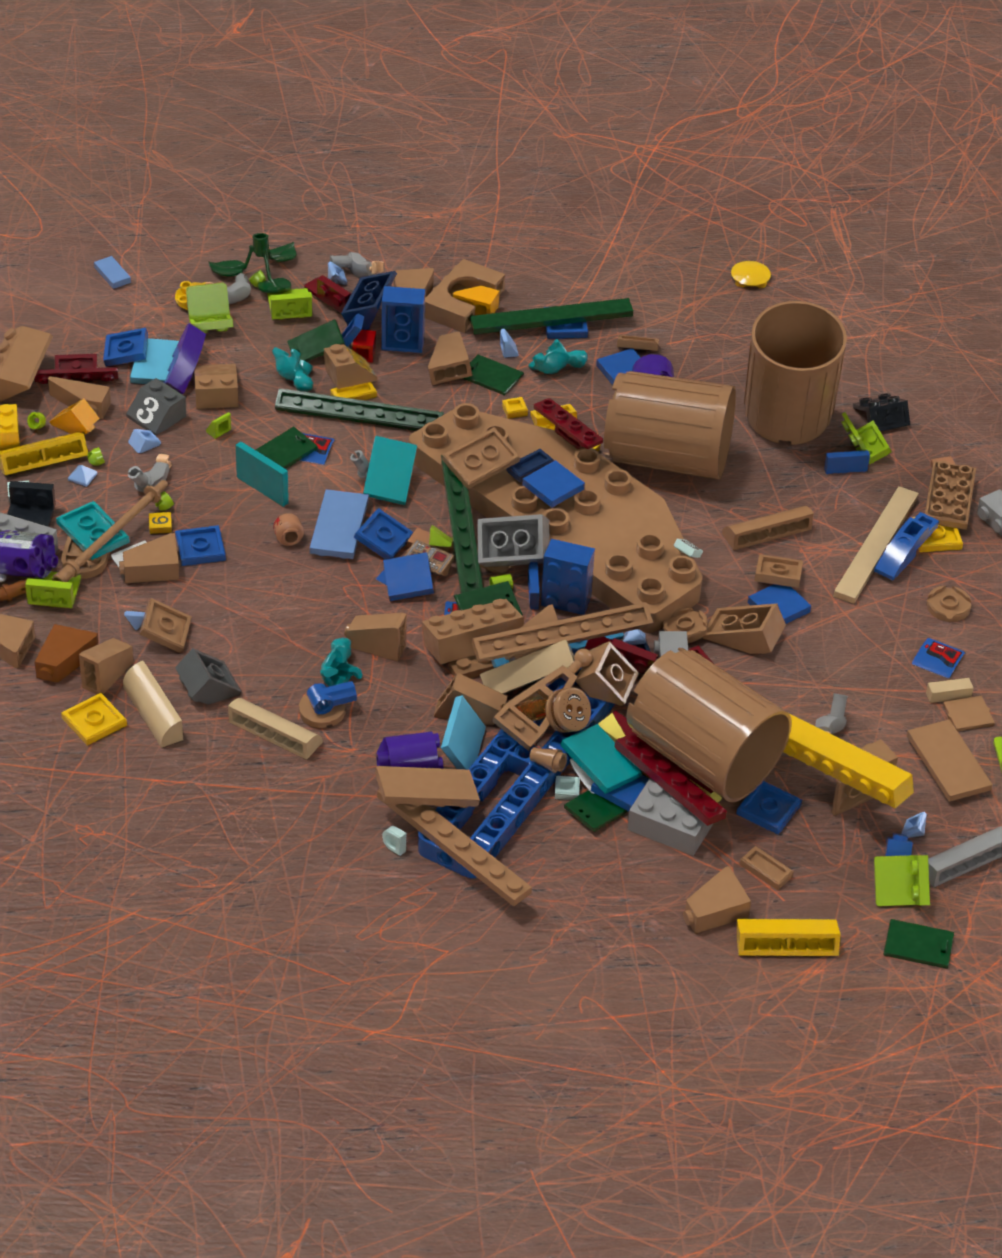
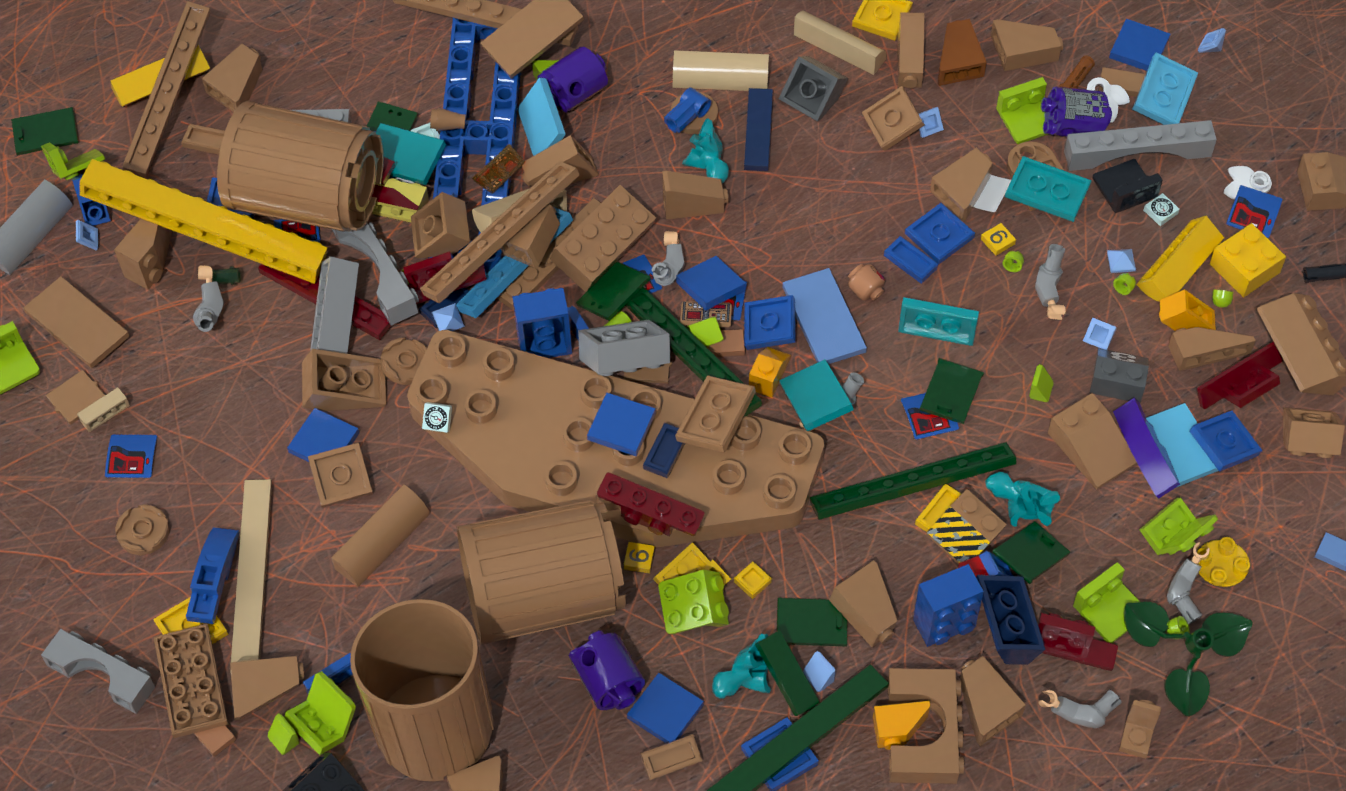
camera: 155 degrees right, 15 degrees up
(65, 326) = (1312, 432): none -> medium nougat slope
(72, 568) = (1022, 125): medium nougat bar -> none
(238, 538) = (910, 259): none -> blue tile
(278, 673) = (758, 129): none -> dark blue tile
(327, 243) = (1139, 728): none -> medium nougat bracket
(336, 274) = (1094, 684): light blue slope -> none
(410, 505) = (768, 371): none -> light orange slope
(431, 602) = (666, 271): none -> light grey arm
(518, 724) = (482, 134): medium nougat plate -> none
(533, 342) = (787, 673): none -> dark green tile
(568, 710) = (451, 159): medium nougat head -> none
(571, 398) = (693, 601): none -> lime bracket
(739, 658) = (334, 305): none -> light grey brick
(787, 904) = (166, 89): none -> medium nougat plate
(897, 451) = (282, 735): none -> lime slope
(897, 471) = (262, 682): none -> medium nougat slope

